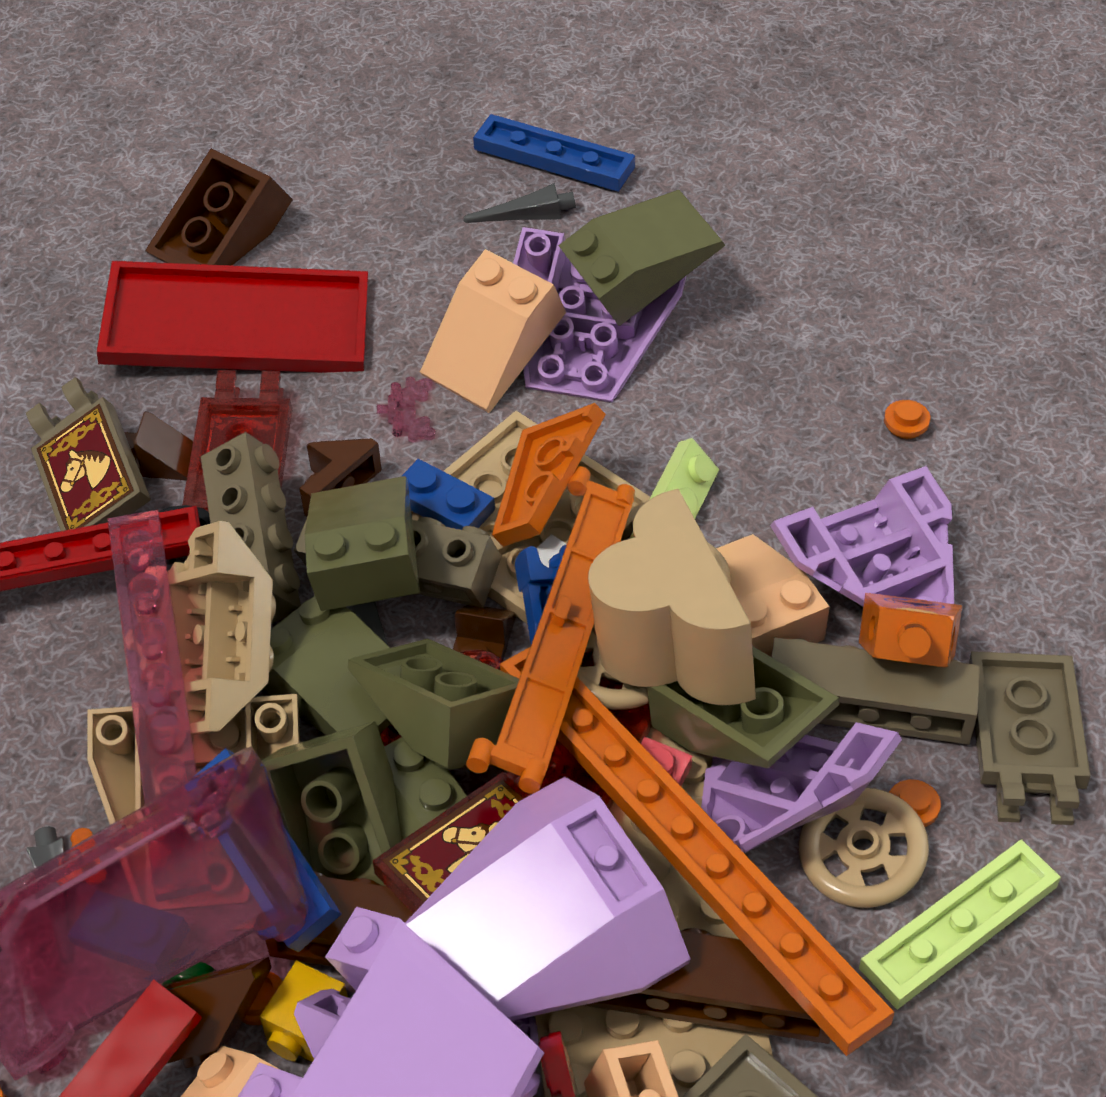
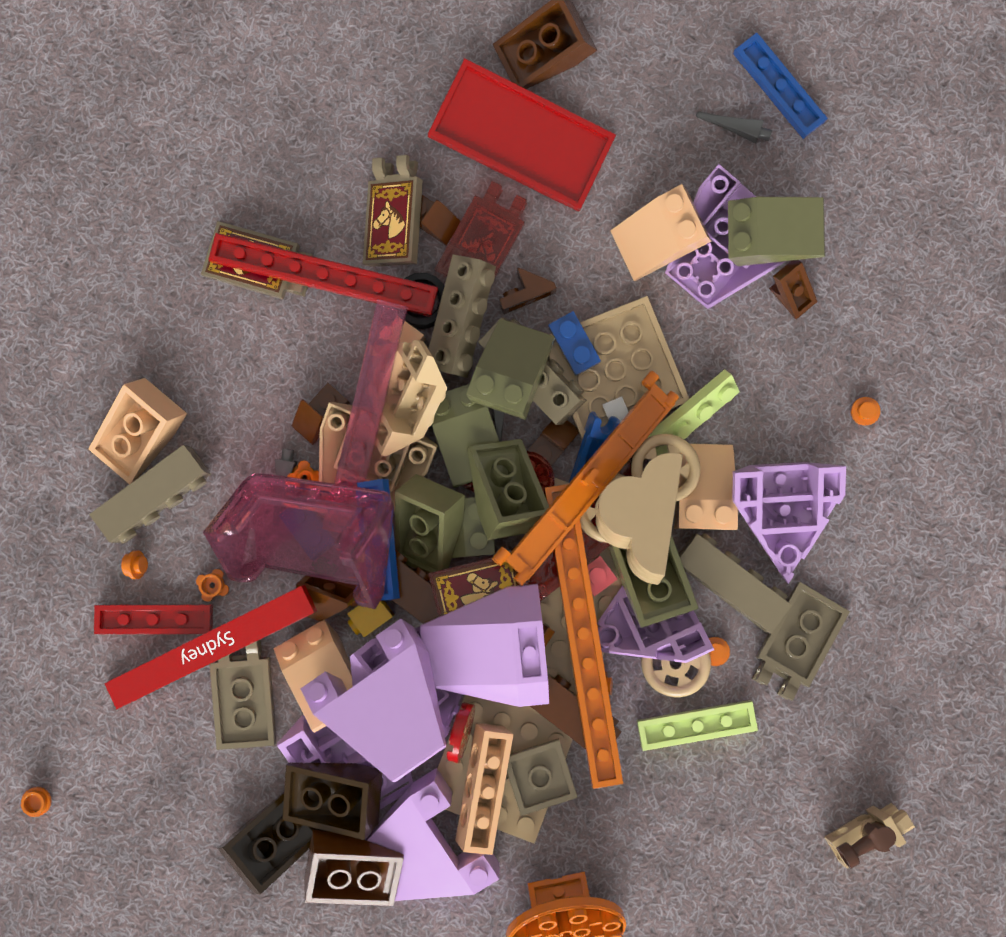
camera: 30 degrees right, 35 degrees up
(63, 768) = (310, 415): none -> reddish brown slope
(405, 419) = (583, 263): clear pink animal -> none
(542, 471) = (634, 360): orange wing -> none
(712, 324) = (794, 288): none -> reddish brown slope
(909, 629) = (766, 572): orange torso -> none

